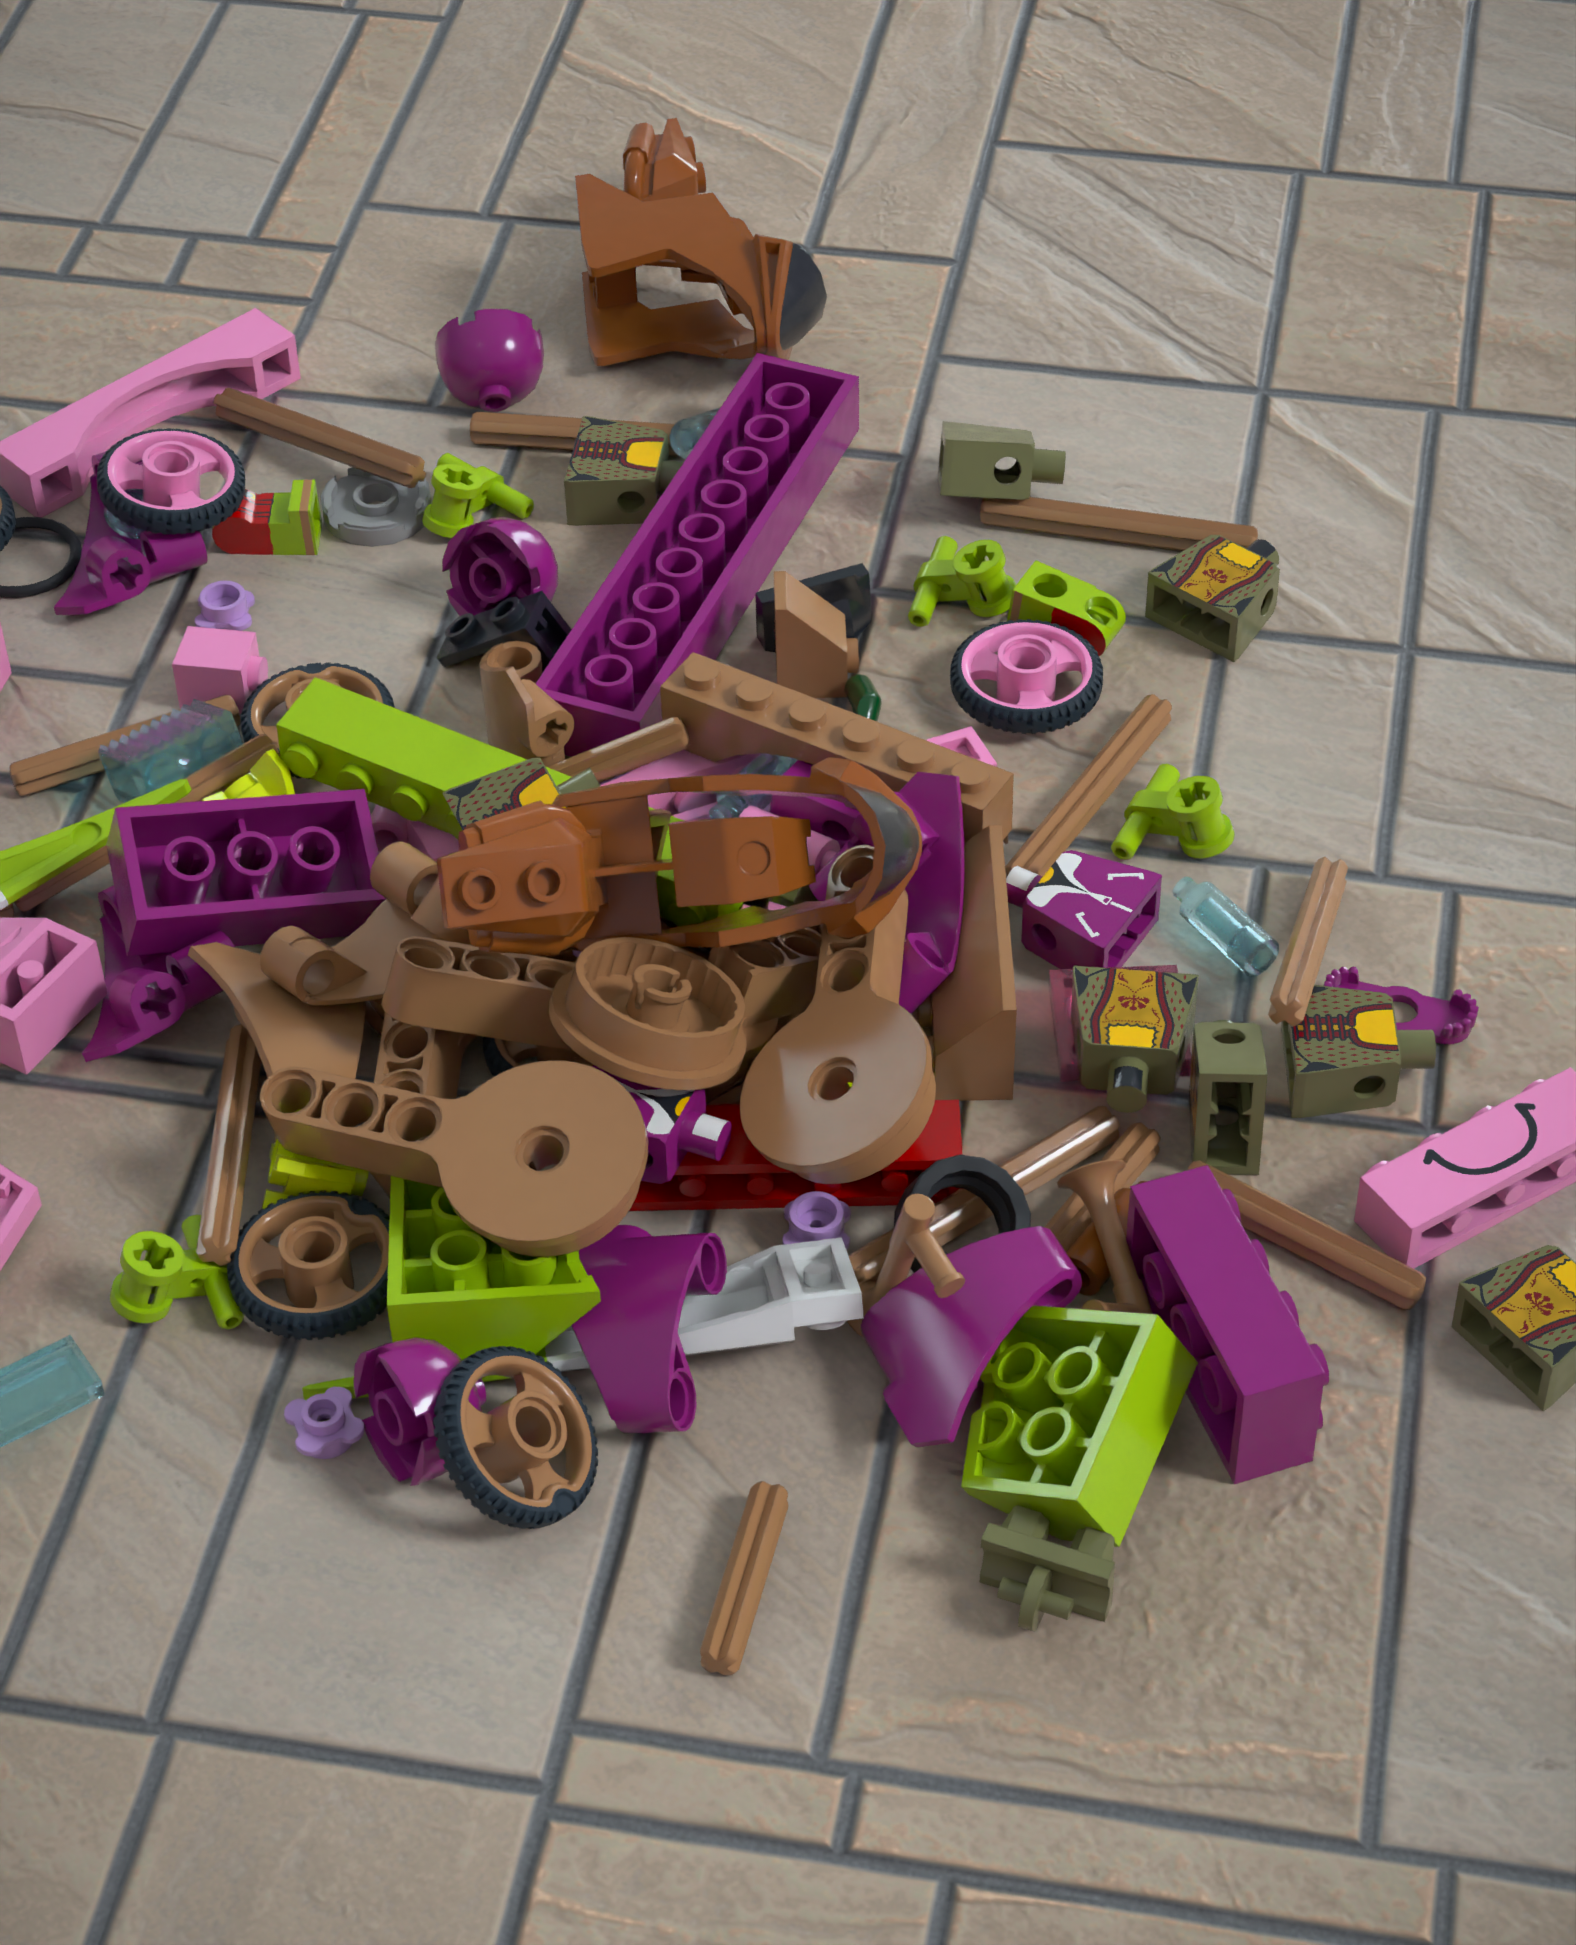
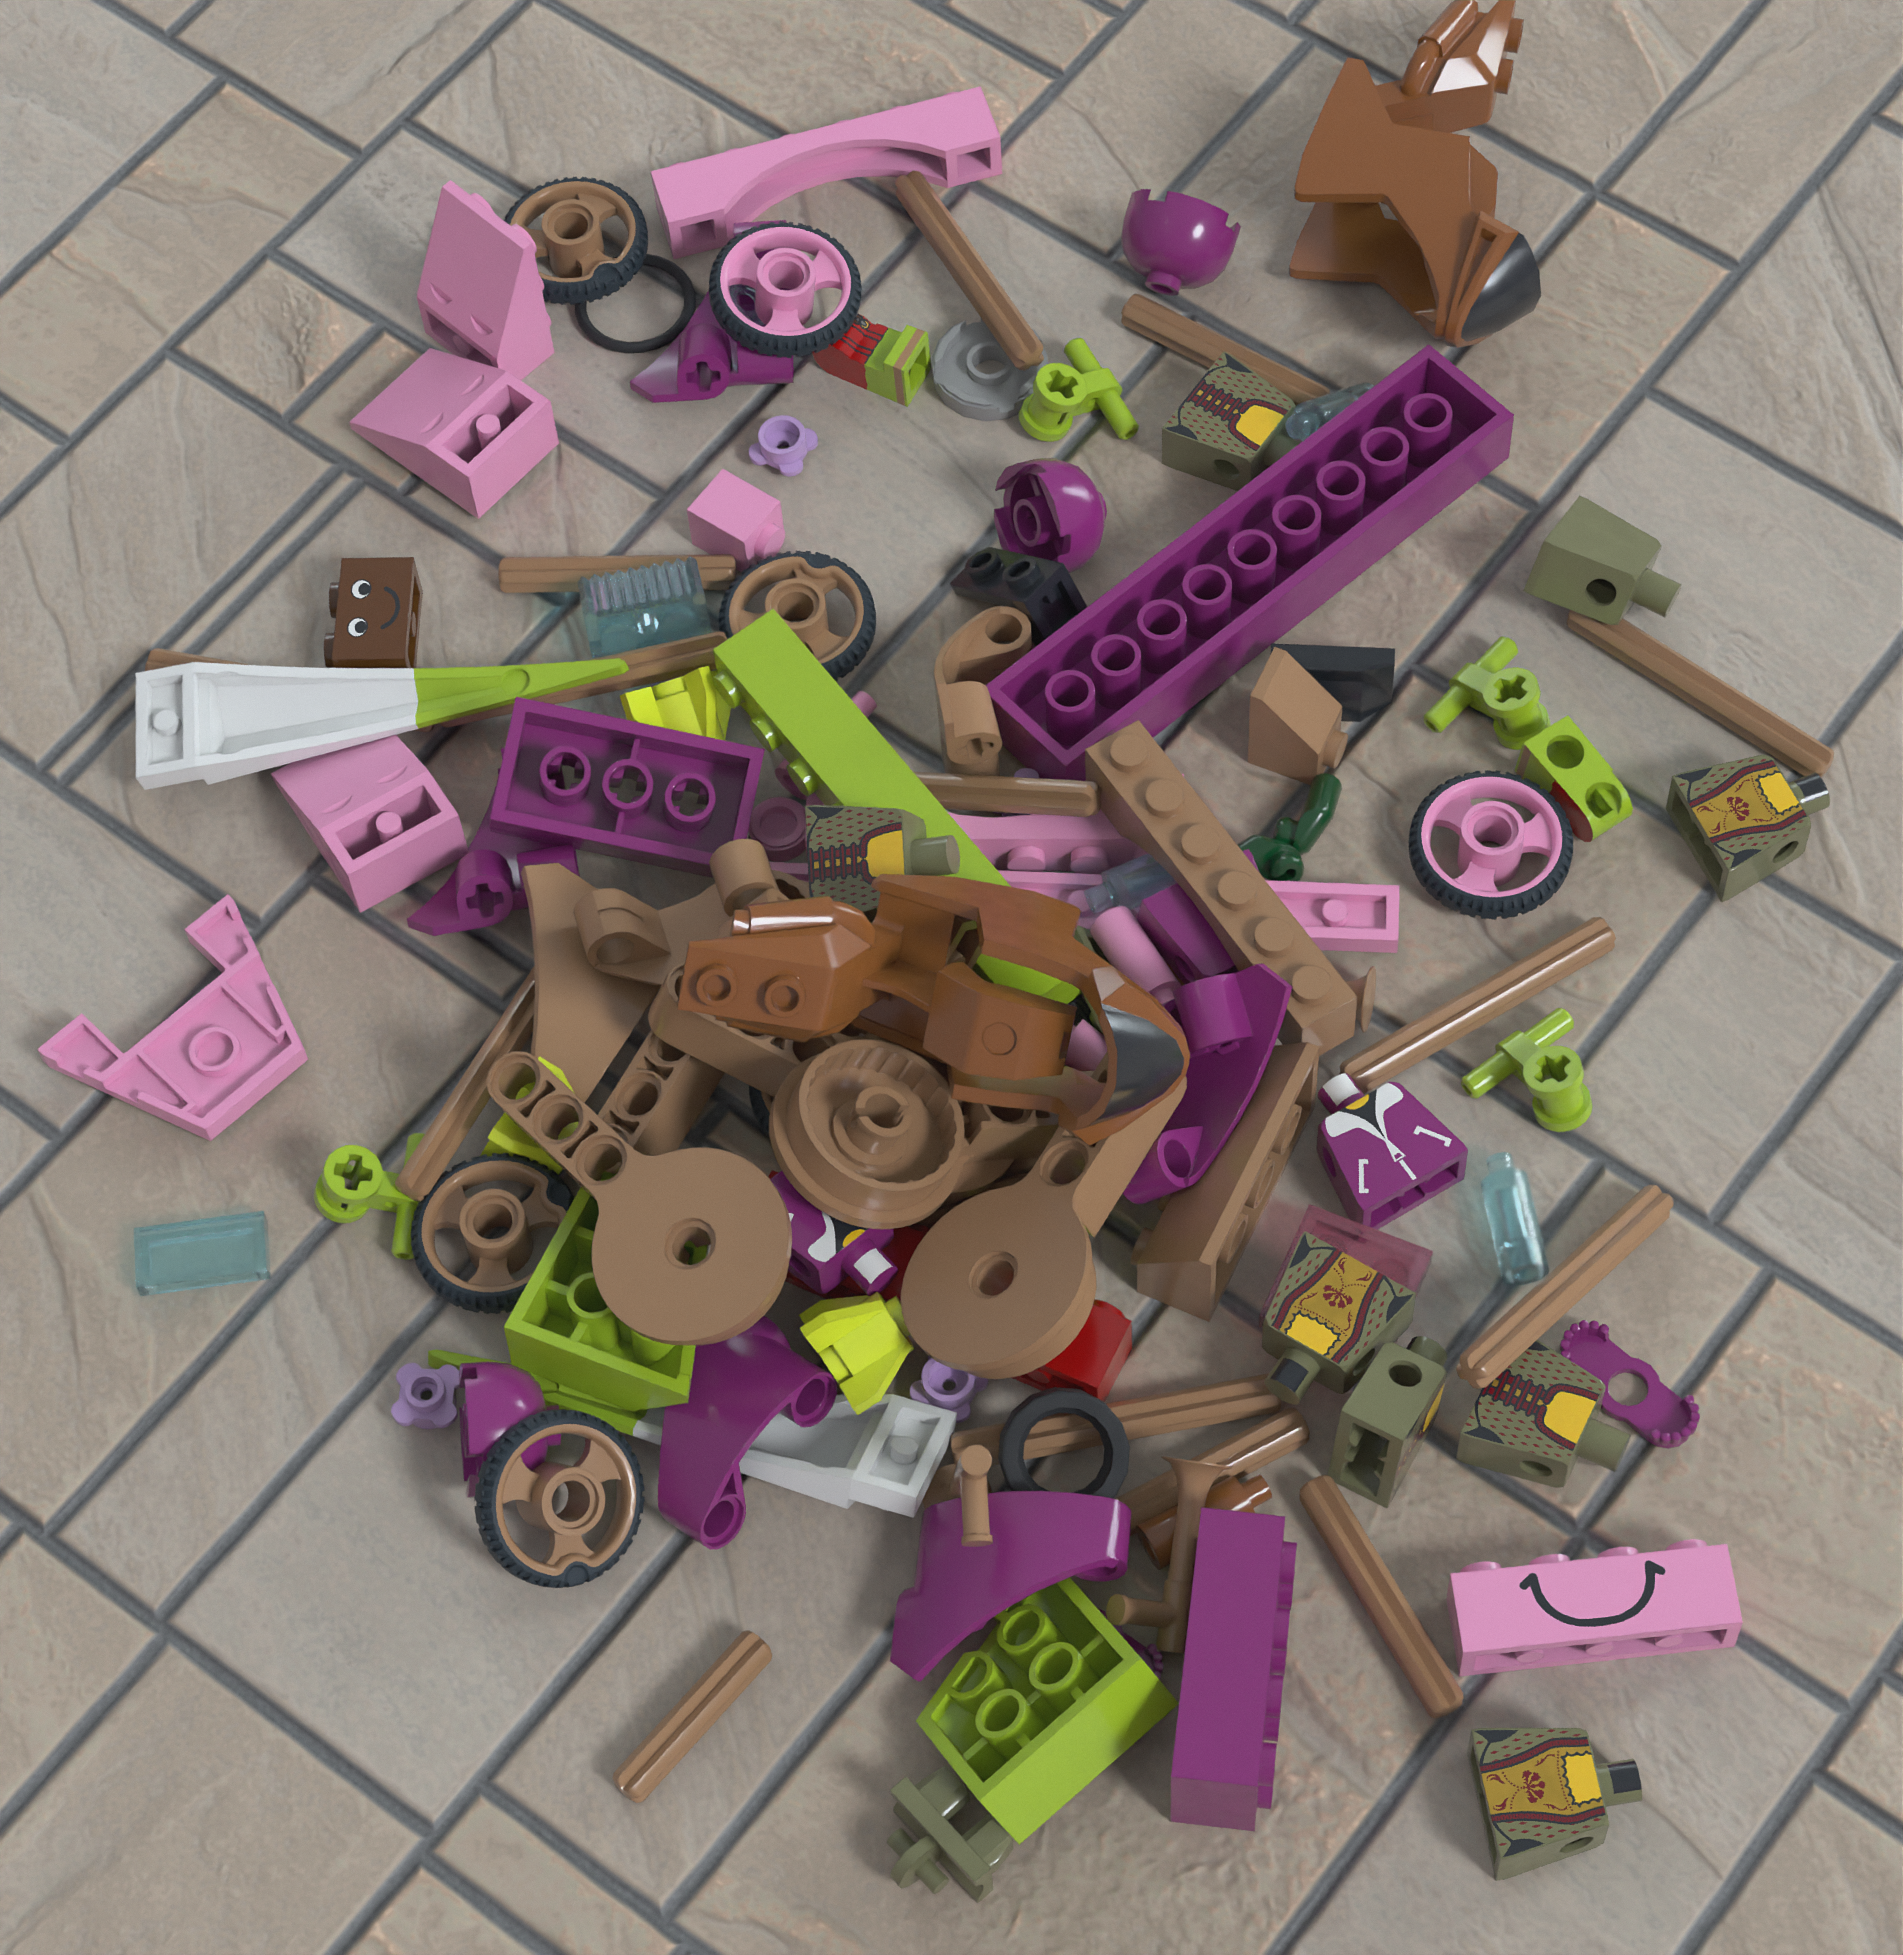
camera: 30 degrees right, 15 degrees up
(729, 1198) = (860, 1344): none -> neon yellow brick

